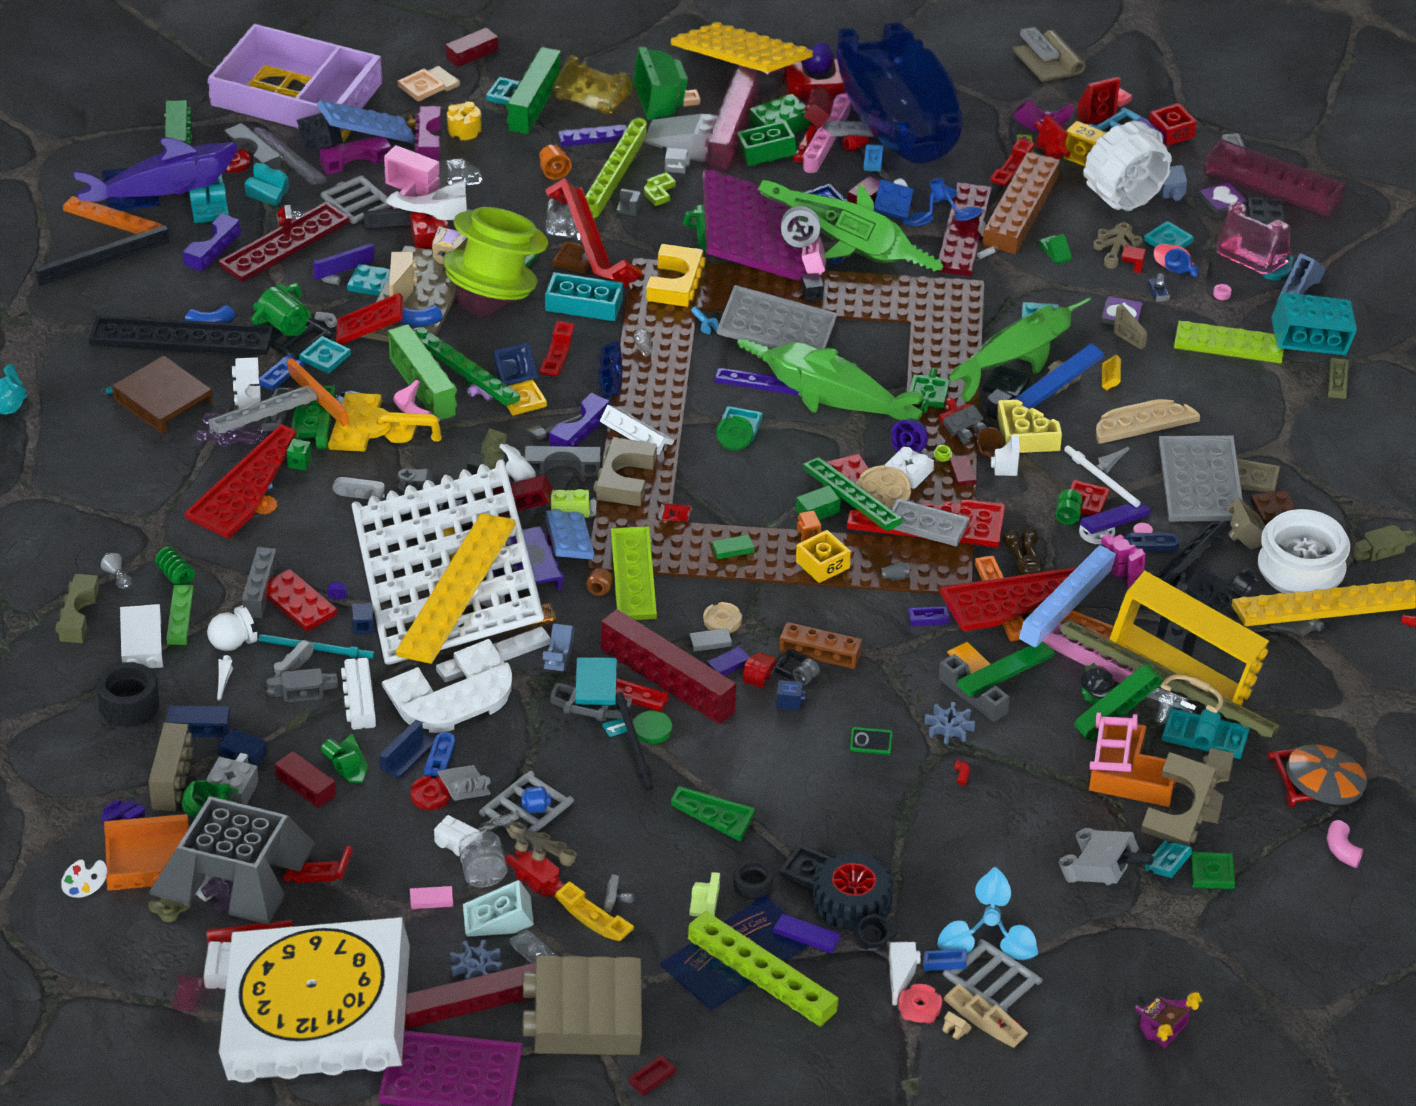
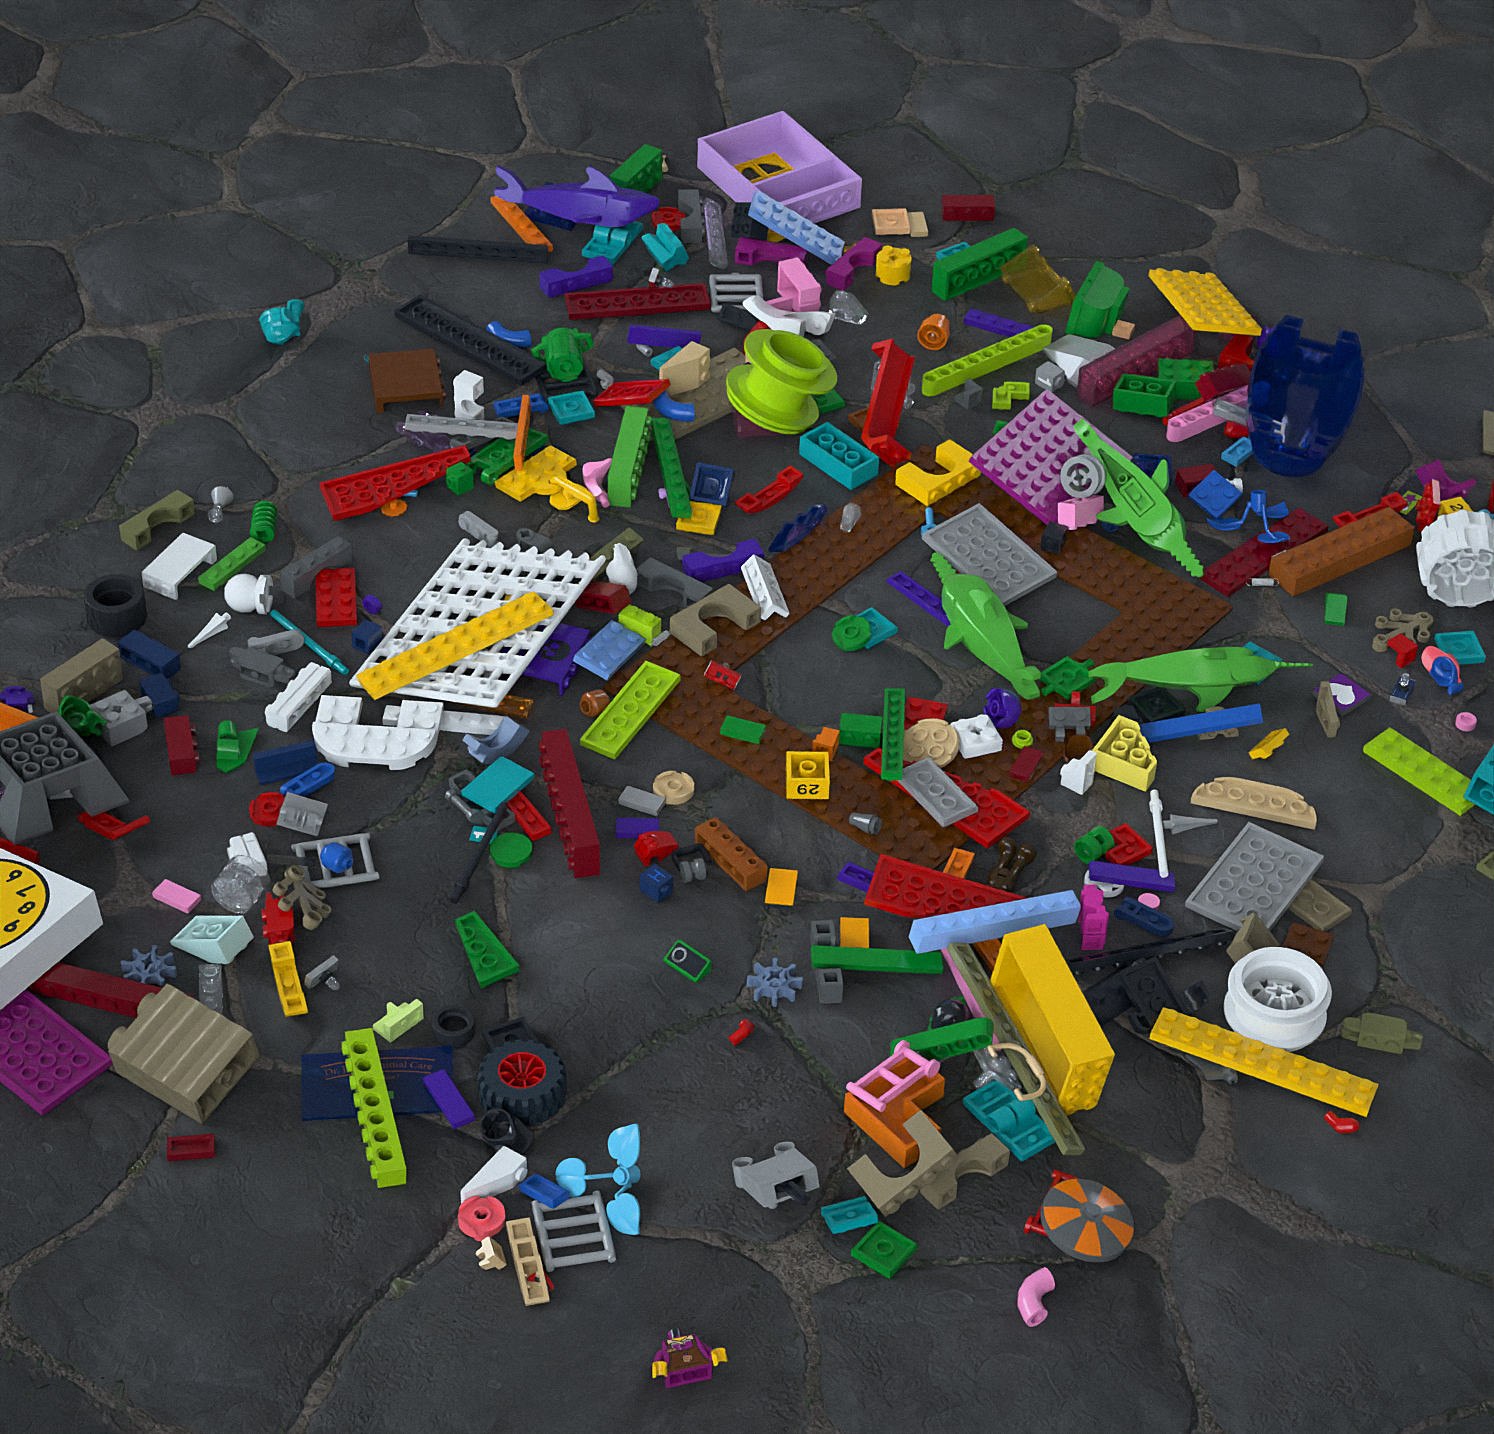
camera: 35 degrees right, 0 degrees up
(882, 652) = (781, 888): none -> light orange piece

